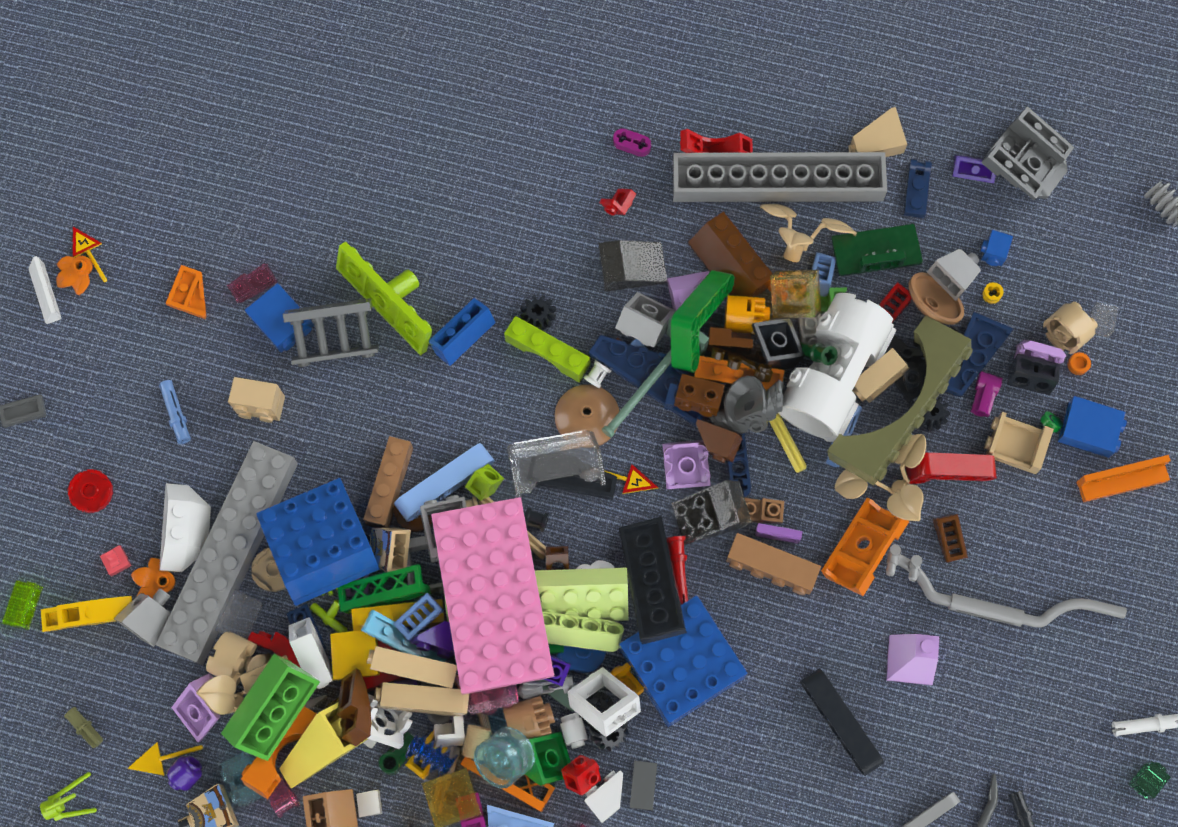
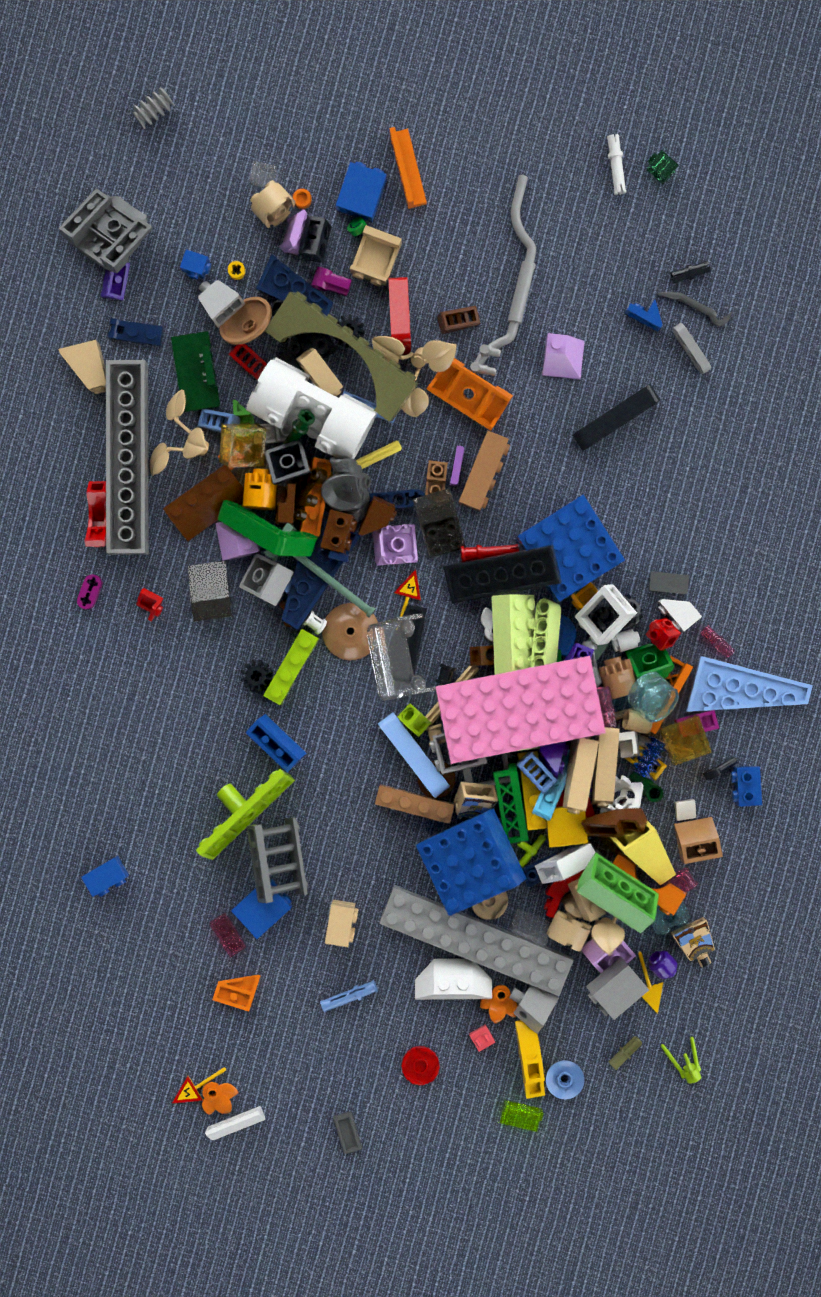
camera: 90 degrees left, 15 degrees up
(48, 652) = (565, 1089): none -> medium blue dish
(159, 715) = (616, 988): none -> light grey brick
(322, 155) = (105, 876): none -> blue brick
(964, 763) = (650, 318): none -> blue slope

